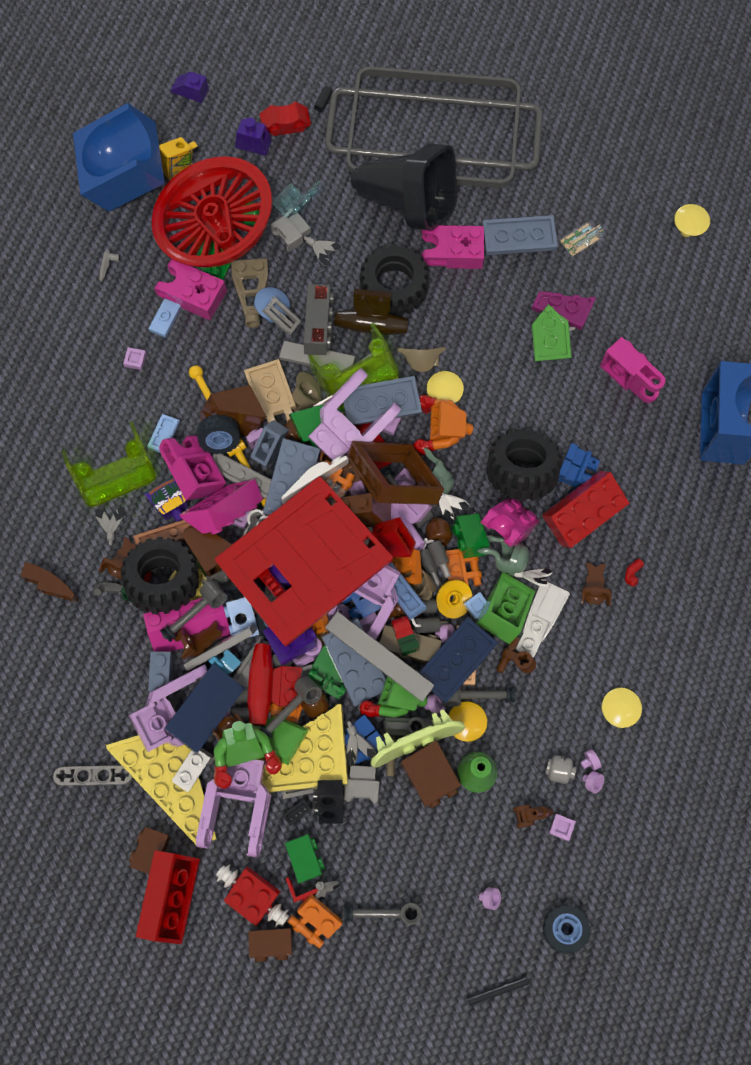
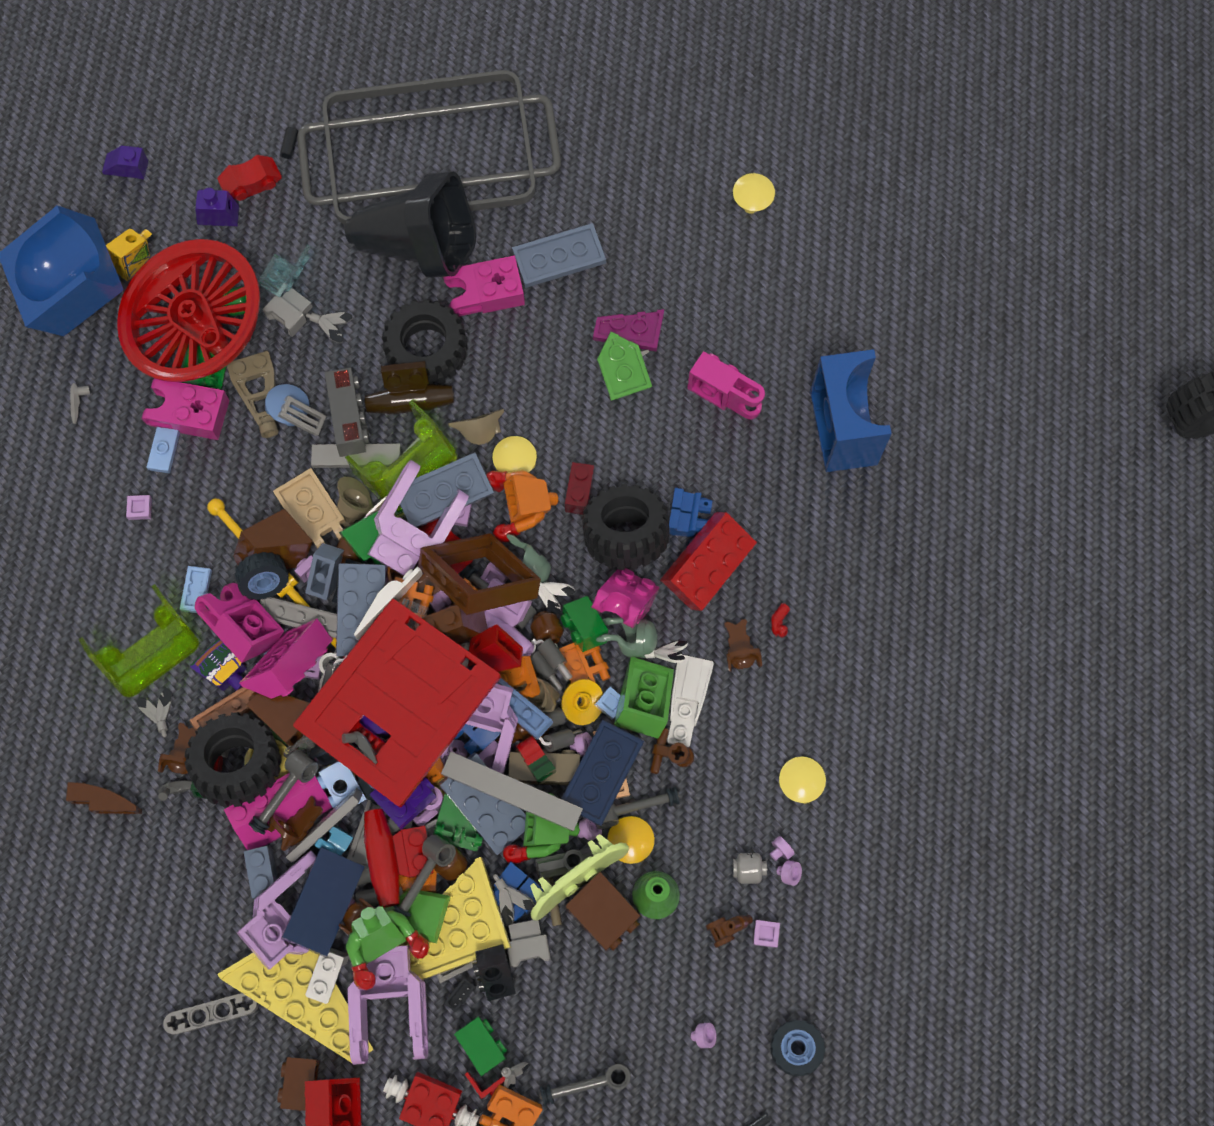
camera: 15 degrees left, 0 degrees up
(267, 586) = (362, 743): none -> dark grey bar
(492, 425) = (579, 488): none -> dark red brick
(581, 238) = (631, 242): clear panel -> none

